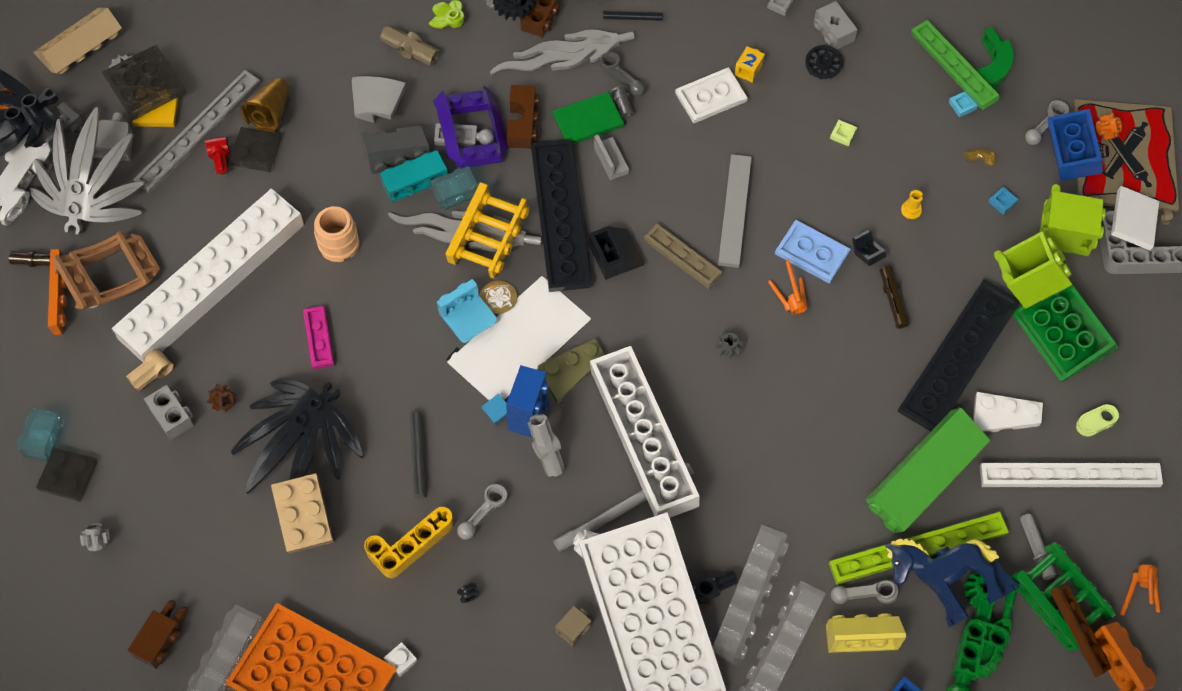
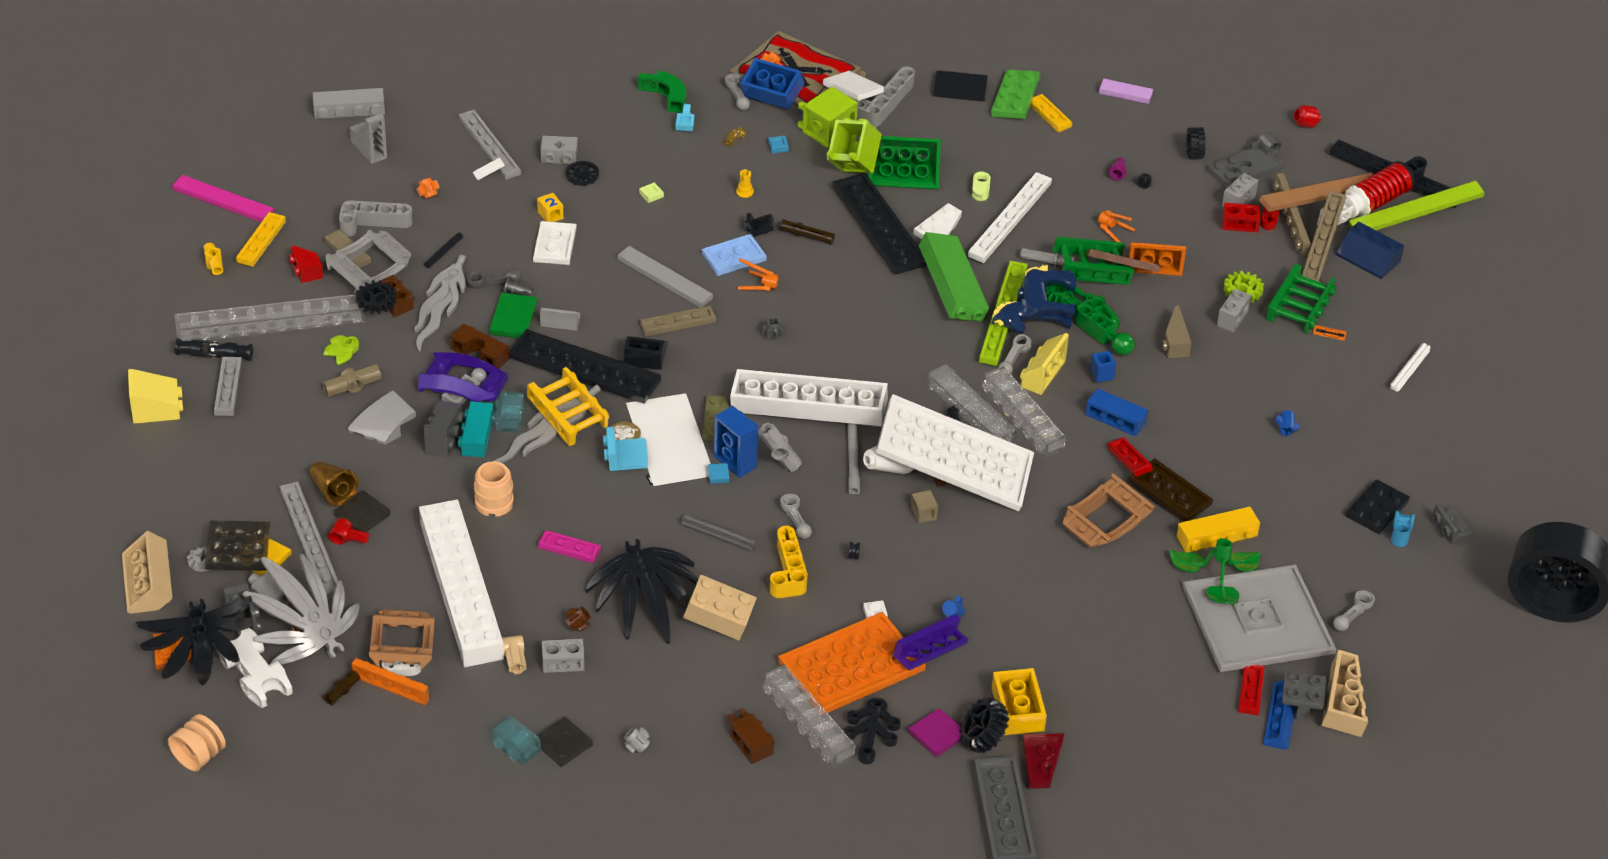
camera: 60 degrees left, 20 degrees down
(955, 65) = (652, 106): bright green plate -> none

